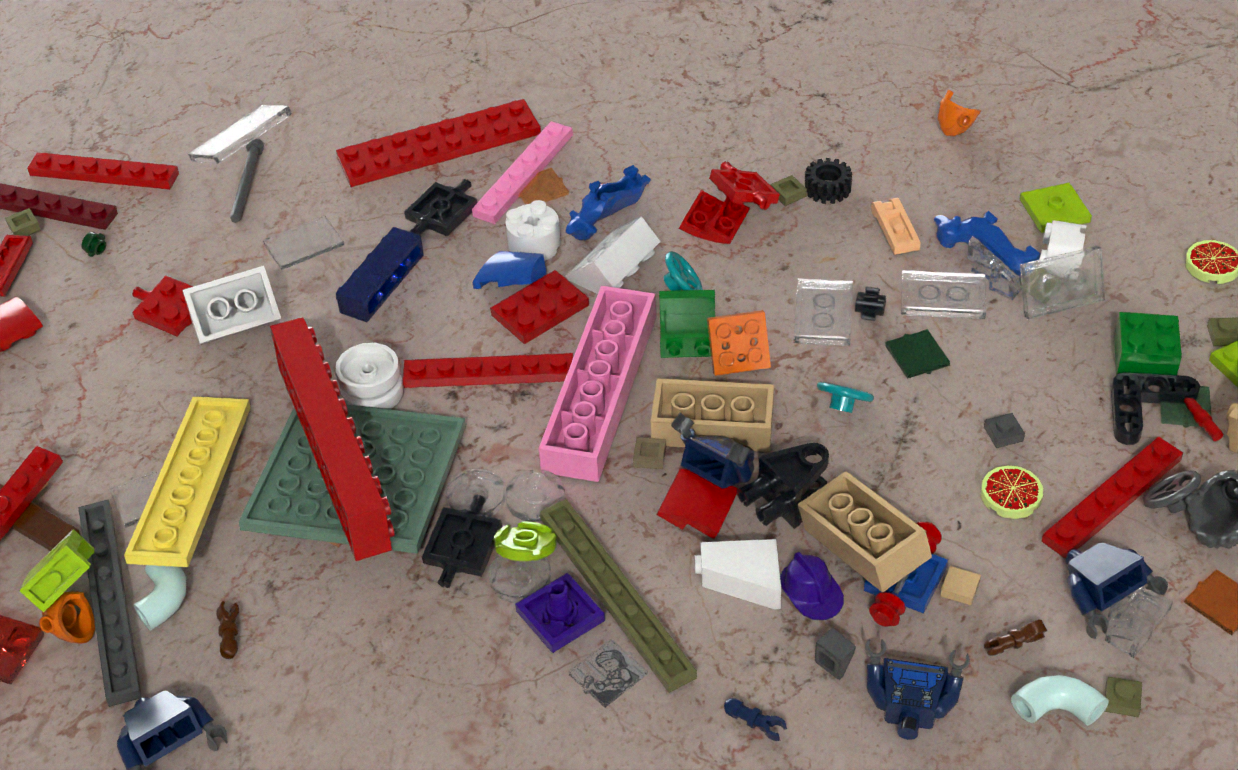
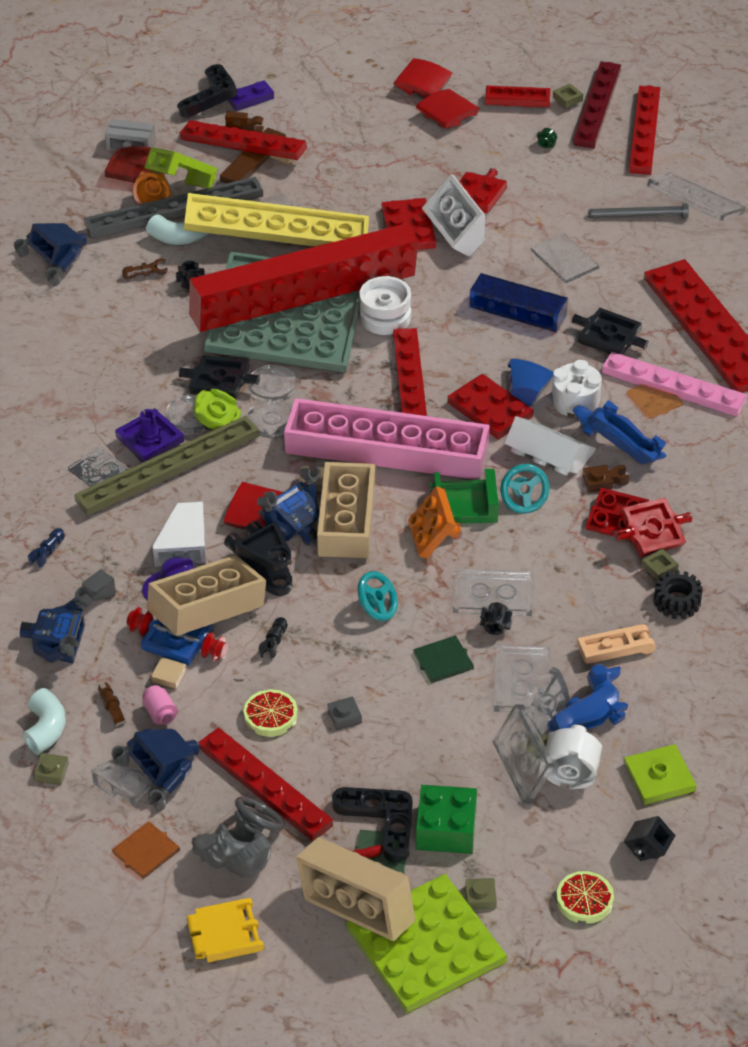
camera: 85 degrees right, 0 degrees up
(210, 368) = (410, 212): none -> red plate
(258, 575) = (188, 270): none -> black gear
(660, 224) = (601, 477): none -> reddish brown plate
(881, 484) = (273, 637): none -> black piece
(1019, 587) = (159, 705): none -> bright pink brick
(1148, 209) = (649, 838): none -> black brick

